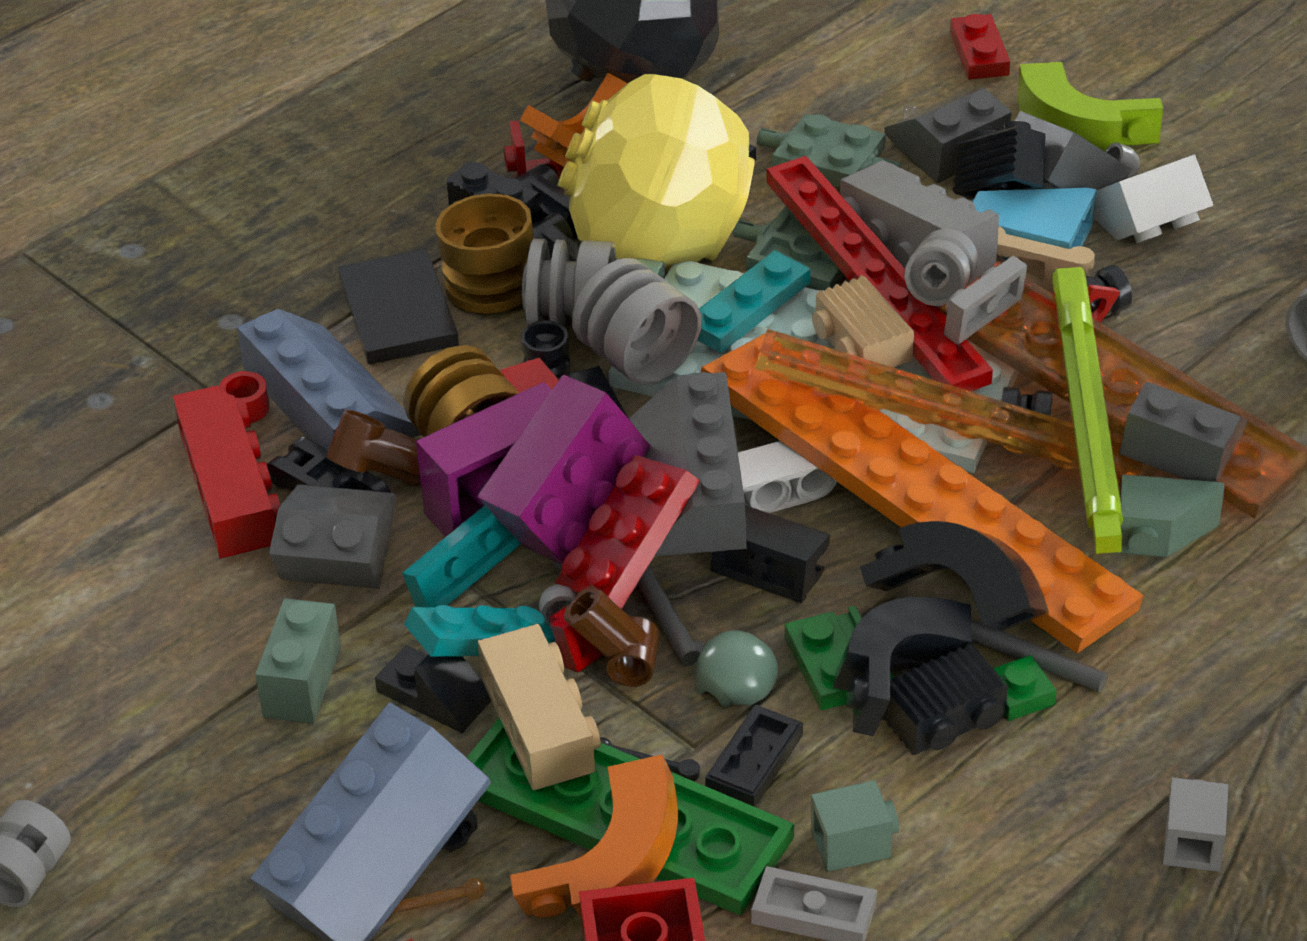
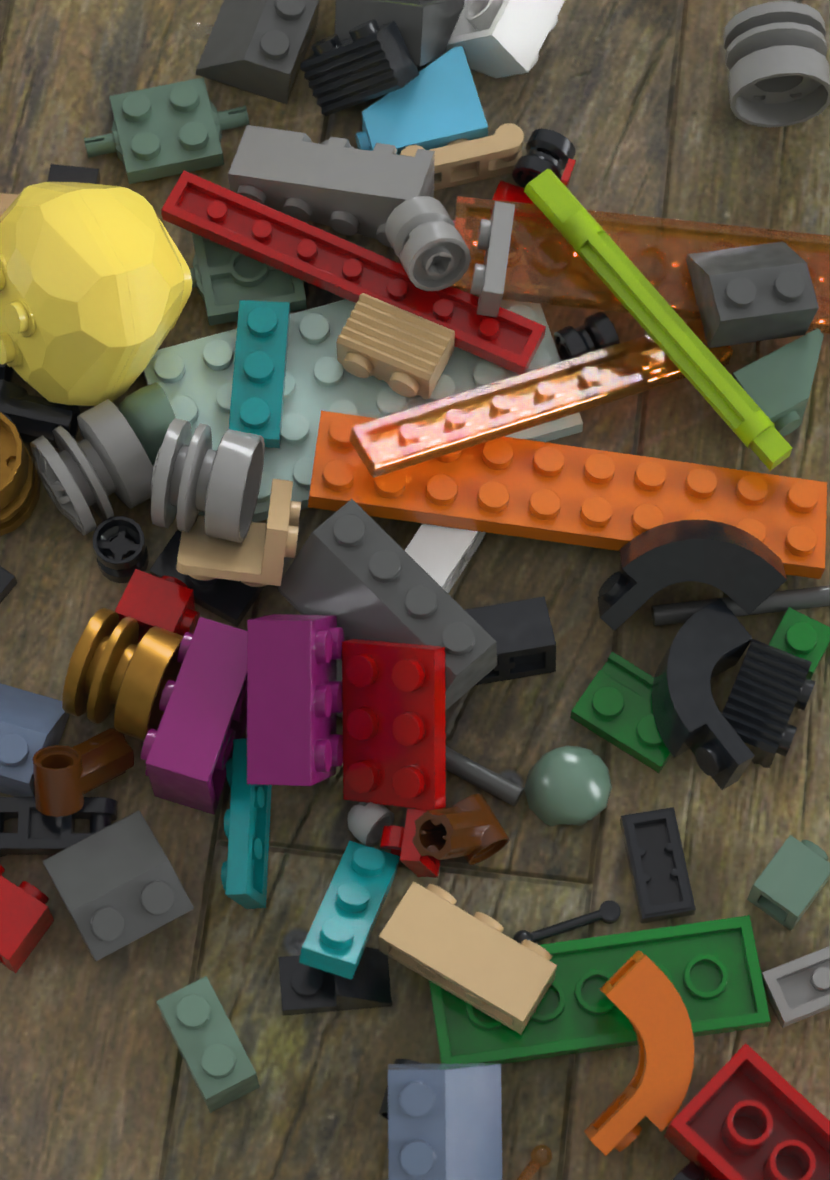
camera: 40 degrees left, 25 degrees up
(646, 377) = (258, 558): none -> tan bracket

